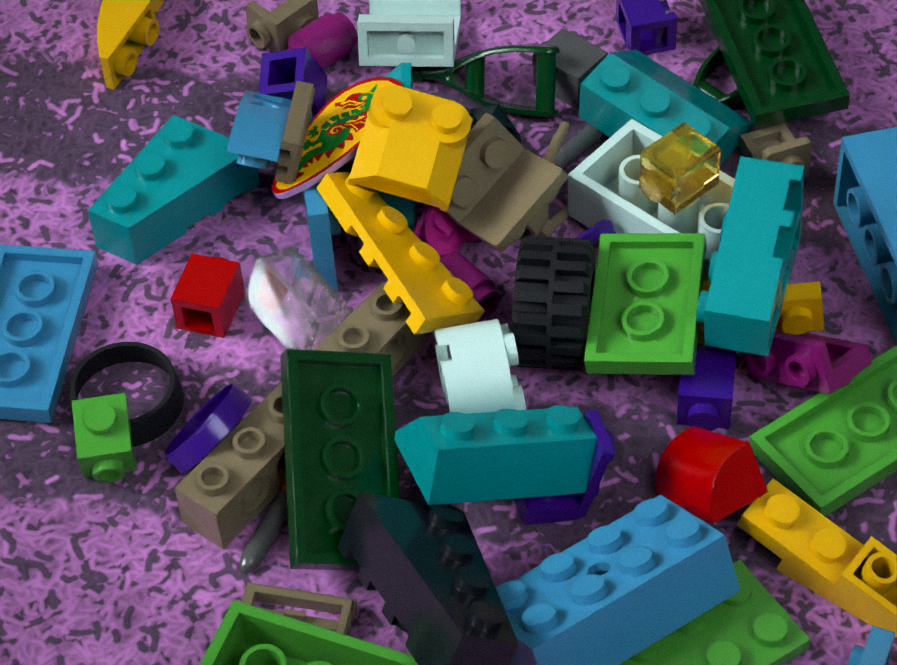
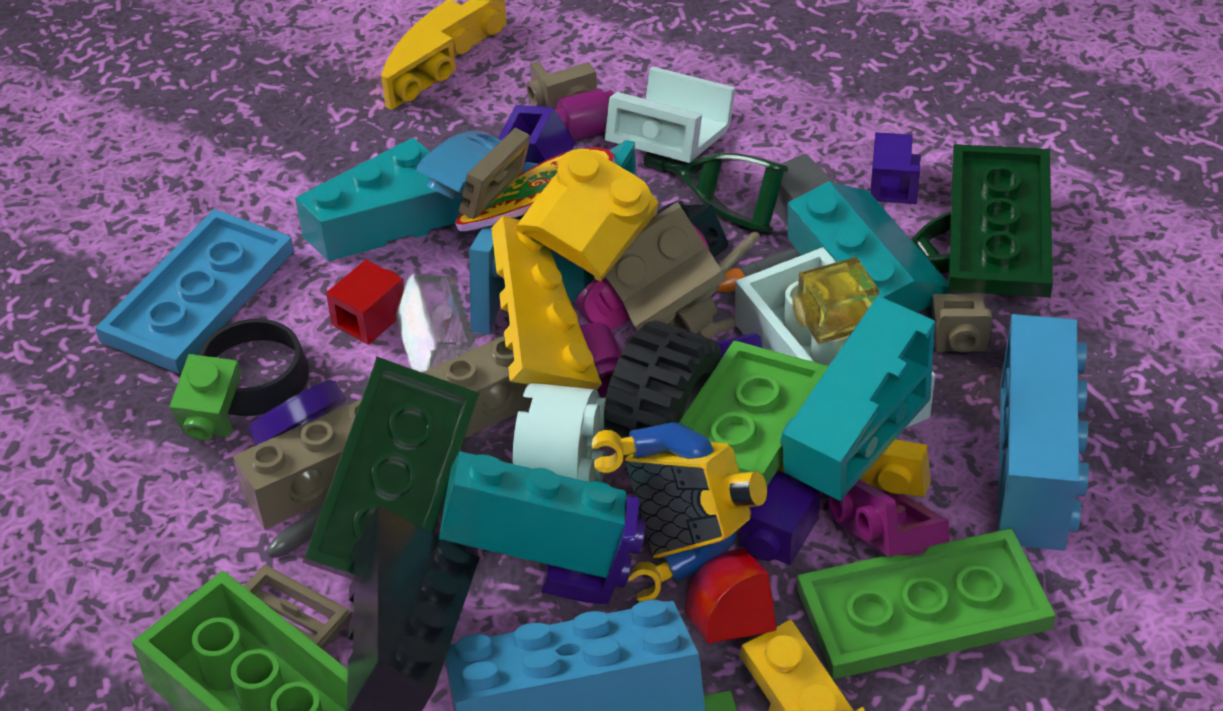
camera: 20 degrees right, 5 degrees down
(636, 391) = (686, 495): none -> torso

